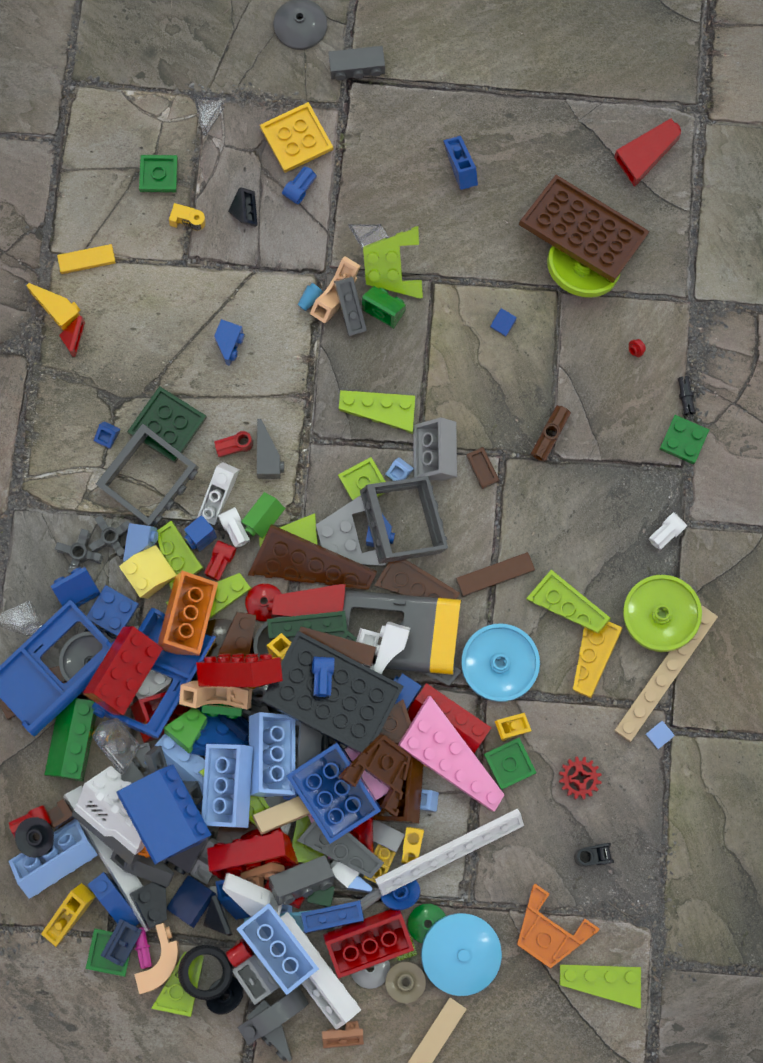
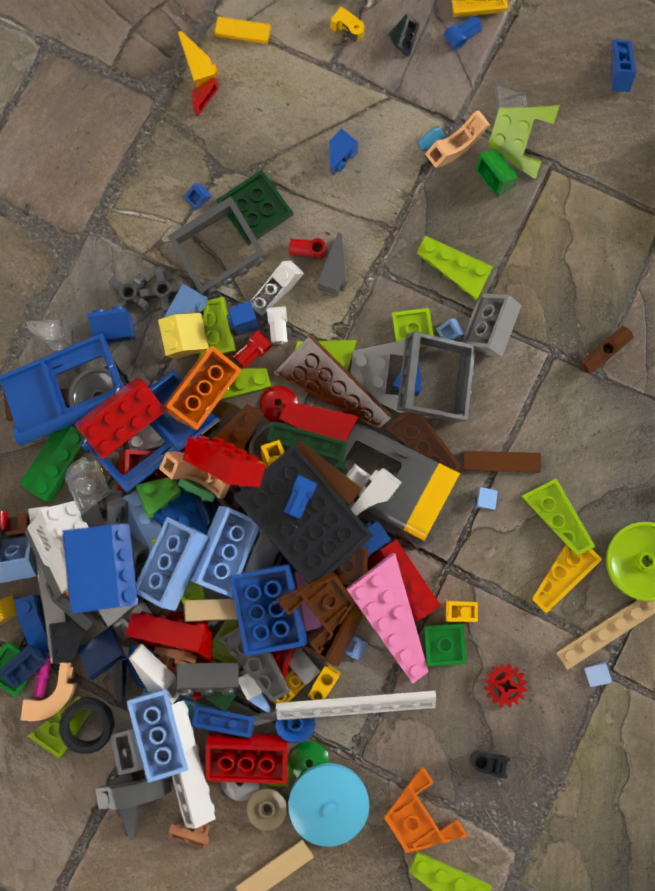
camera: 30 degrees right, 5 degrees up
(112, 610) = (138, 358): blue plate -> none
(228, 1000) = (92, 762): black dish -> none
(239, 953) = (121, 722): red piece -> none
(262, 515) = (307, 323): bright green brick -> none
(350, 306) = (465, 159): dark grey plate -> none
(482, 468) = (529, 357): reddish brown tile -> none
(495, 613) = (486, 498): none -> light blue slope
(500, 662) = (474, 547): medium azure dish -> none
(503, 322) = (603, 229): blue slope -> none

